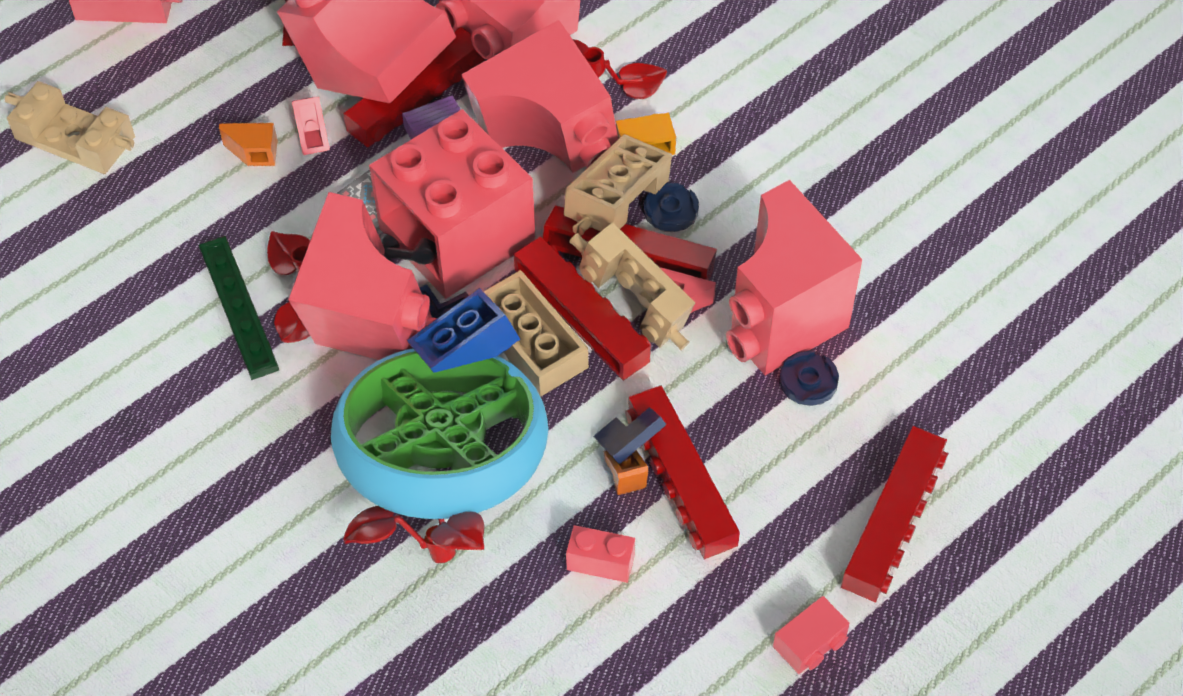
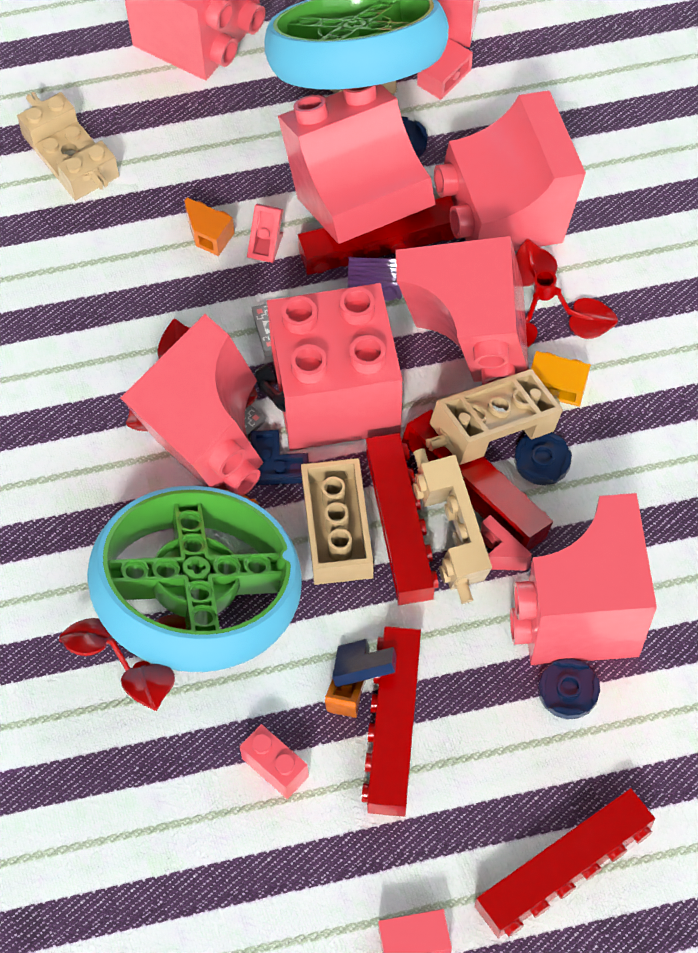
camera: 30 degrees right, 5 degrees up
(238, 308) = (110, 376): dark green tile -> none
(465, 334) = (265, 499): blue slope -> none

